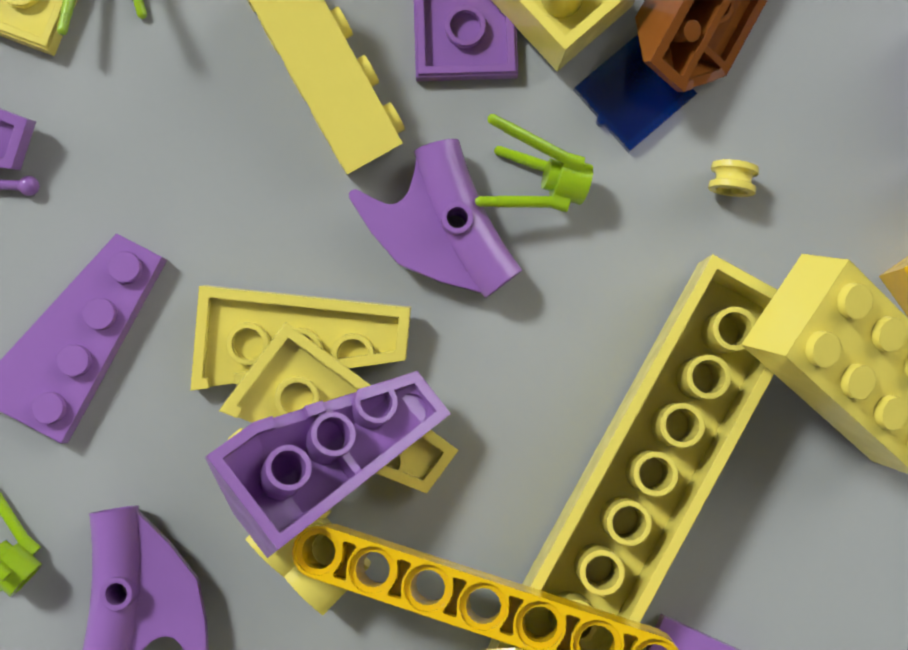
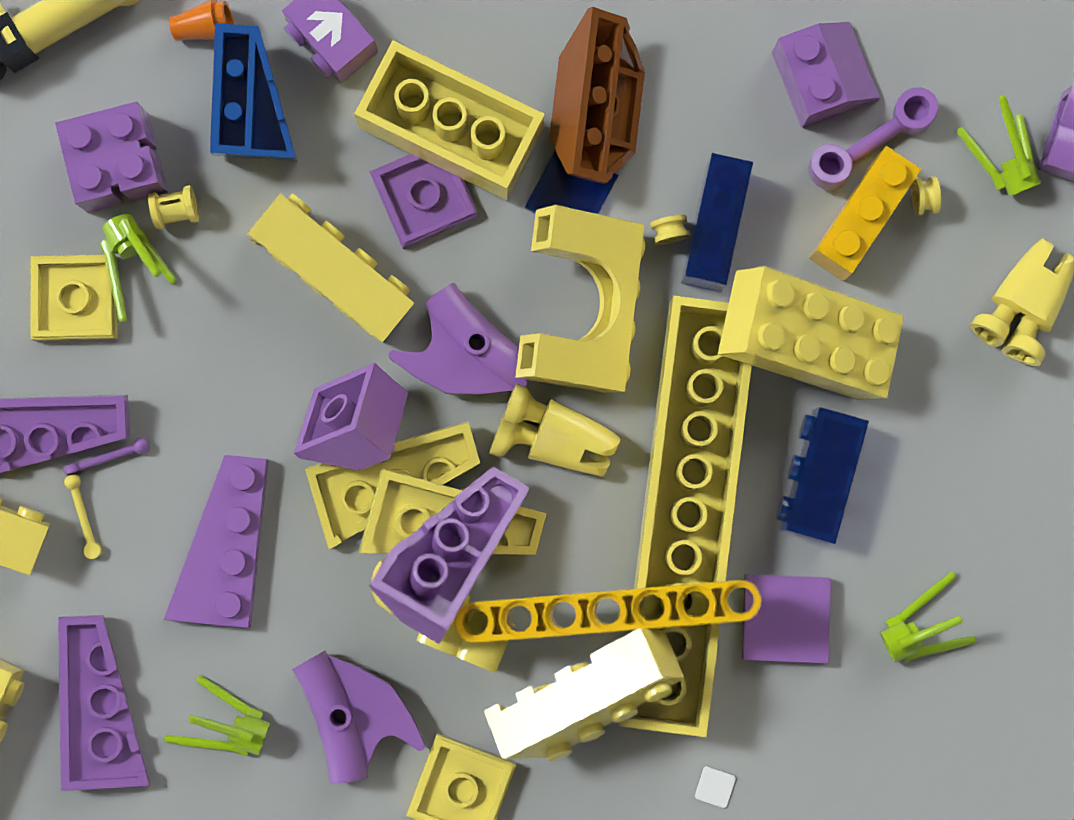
camera: 25 degrees left, 0 degrees up
(277, 252) = (353, 420): none -> medium lavender slope
(511, 368) = (560, 439): none -> light yellow piece
(565, 178) = (543, 278): lime plant -> none
(654, 180) = (612, 255): none -> light yellow arch
(793, 190) = (717, 222): none -> clear blue brick
(802, 536) = (822, 475): none -> clear blue brick

